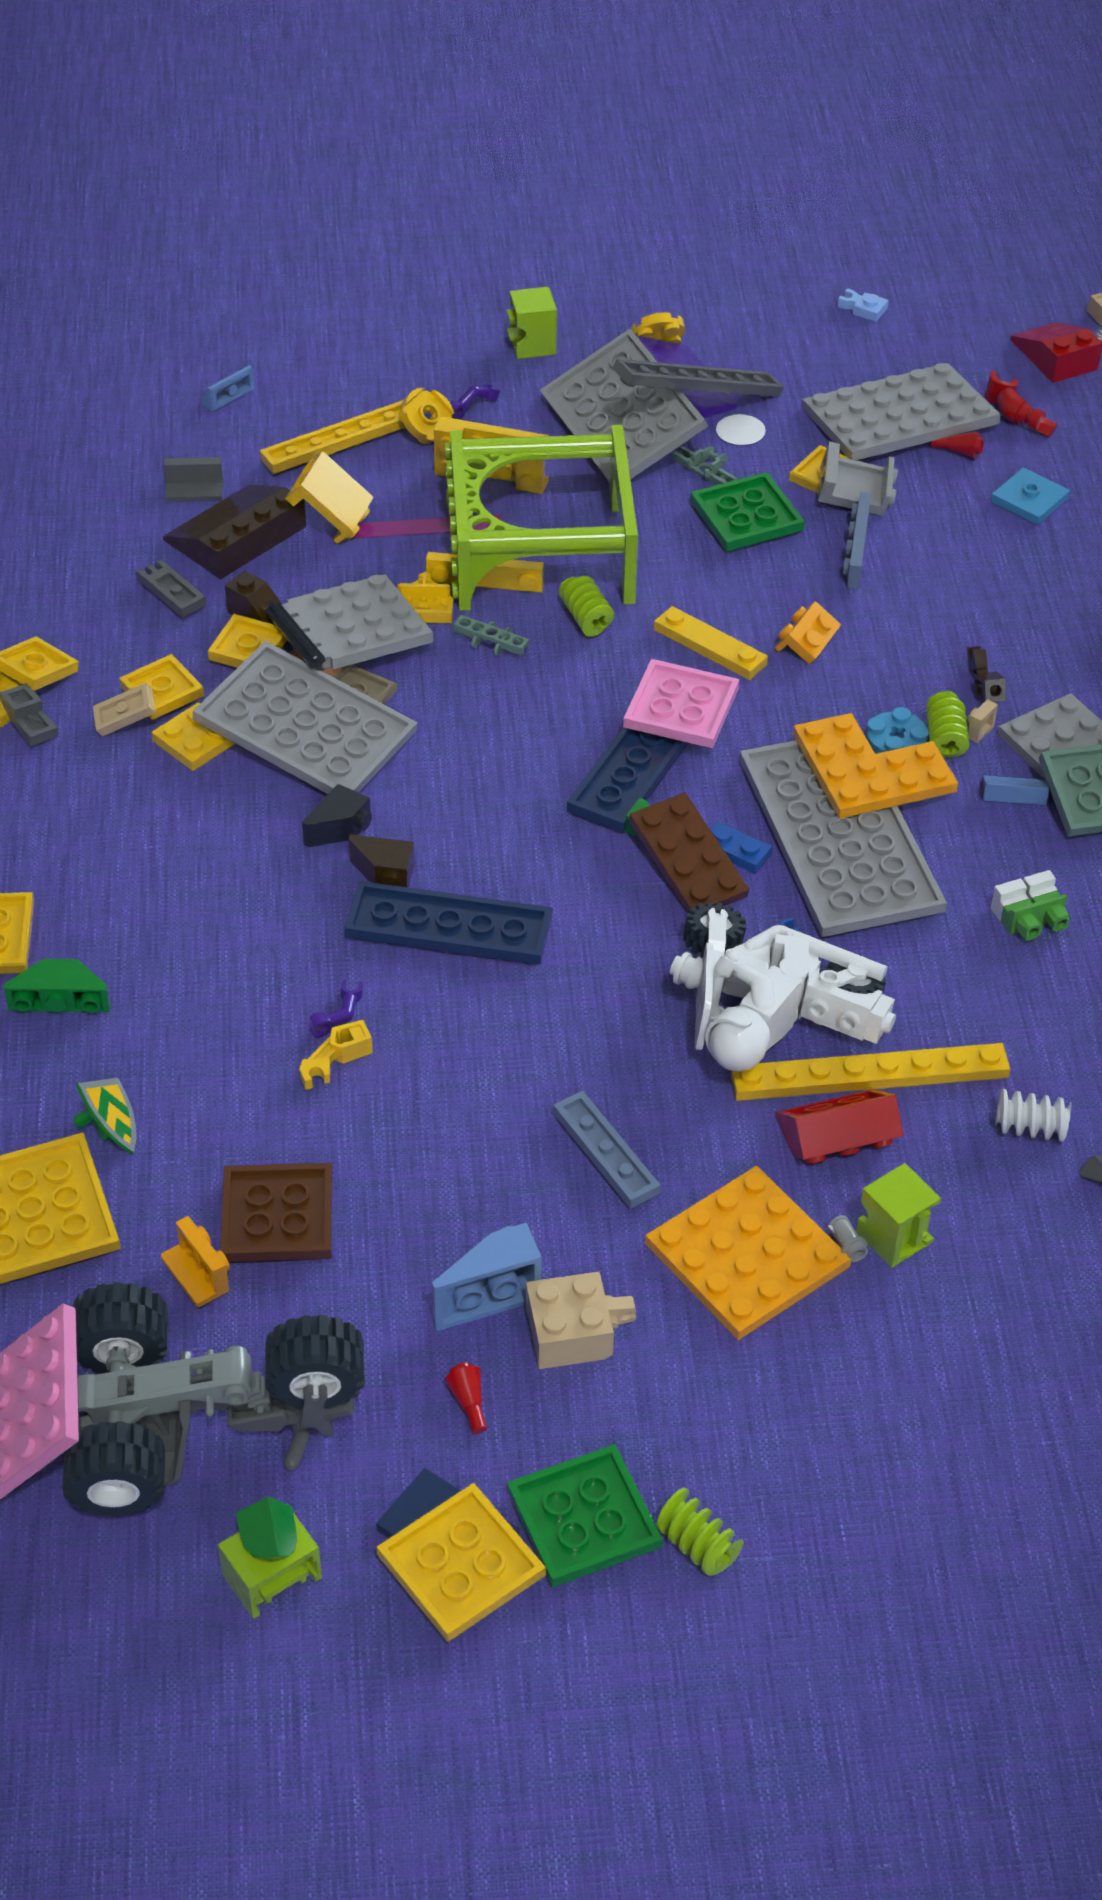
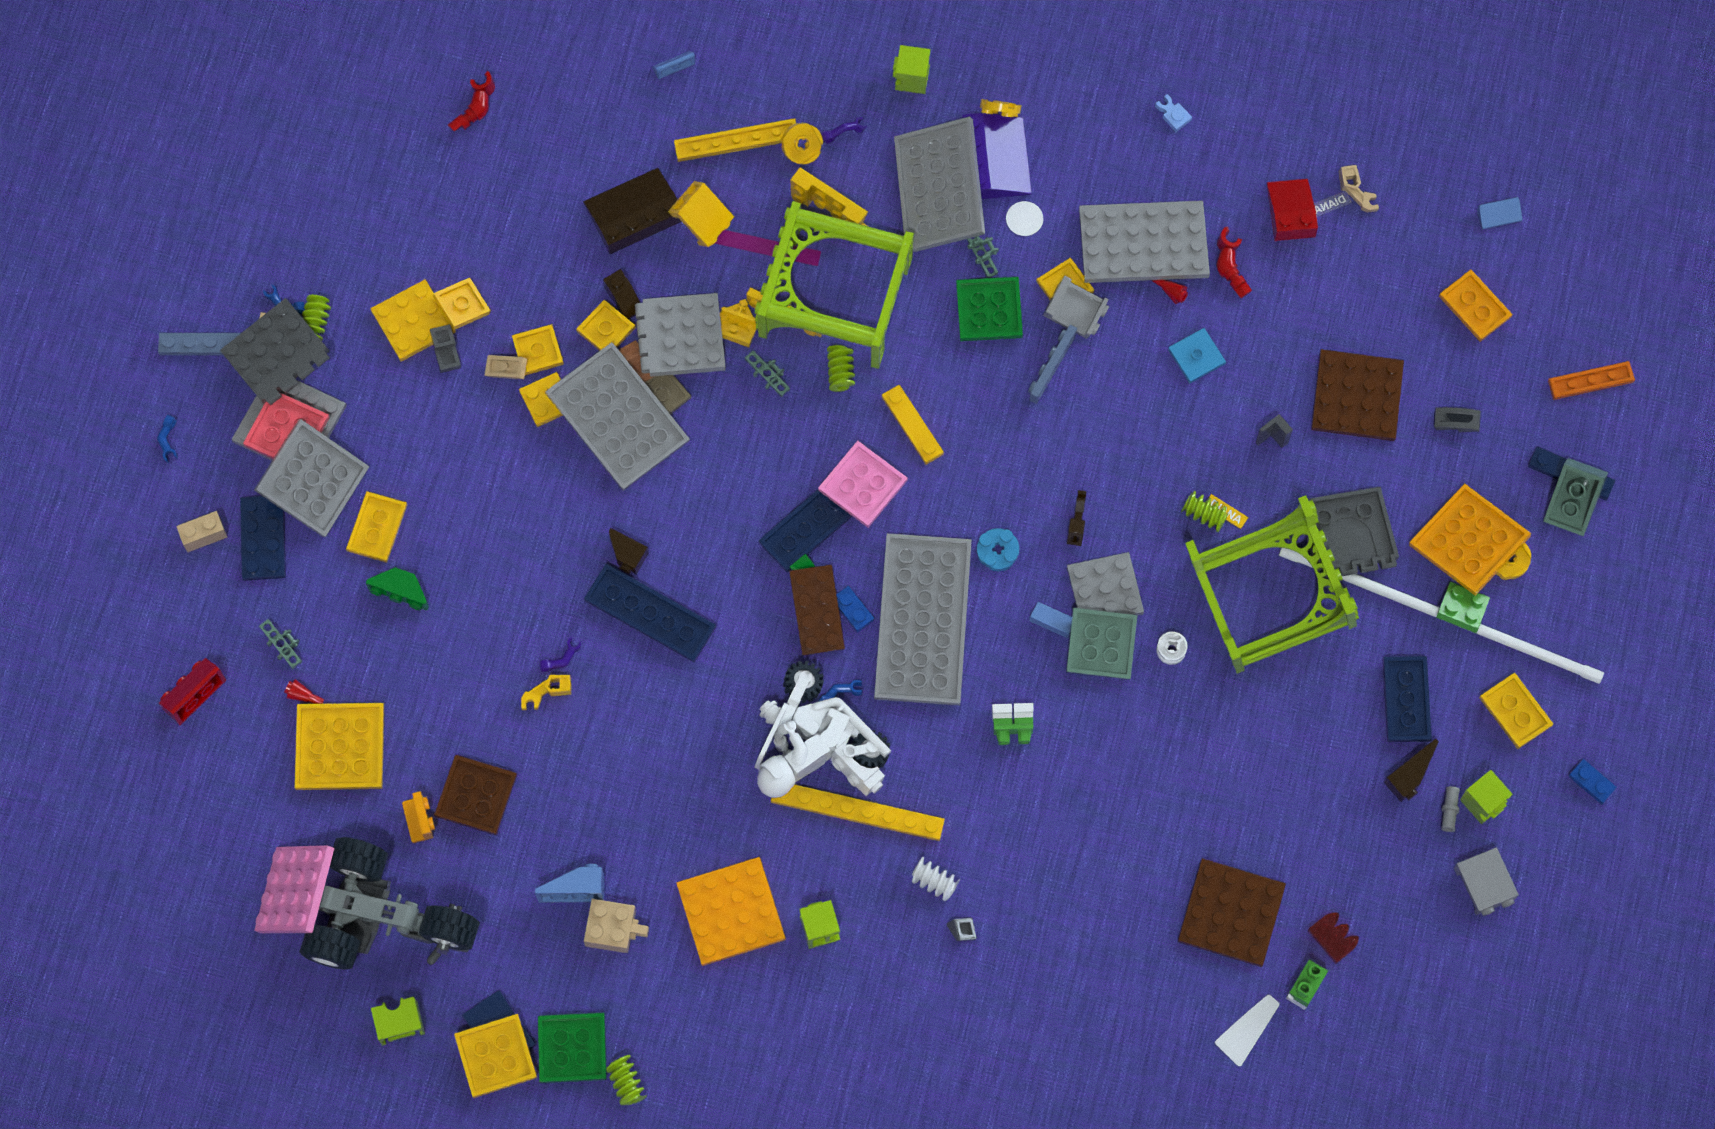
camera: 20 degrees right, 25 degrees up
(109, 1111) = (402, 693): shield -> none
(171, 588) = (572, 258): dark grey hinge -> none
(194, 479) = (620, 154): dark grey panel -> none
(268, 1529) = (397, 1013): green brick -> none
(295, 635) = (634, 340): black axle -> none
(337, 817) = (611, 504): black slope -> none
(465, 1385) = (539, 948): red cone -> none
(606, 1149) = (678, 815): sand blue plate -> none
(697, 378) = (997, 186): dark grey plate -> none
(809, 632) = (979, 439): light orange bracket -> none
(841, 1124) = (819, 844): red slope -> none
(848, 1238) = (789, 923): light grey pin -> none
(866, 781) = (955, 588): light orange plate -> none
(947, 724) = (1029, 556): lime piece -> none
(982, 720) = (1056, 558): tan plate -> none

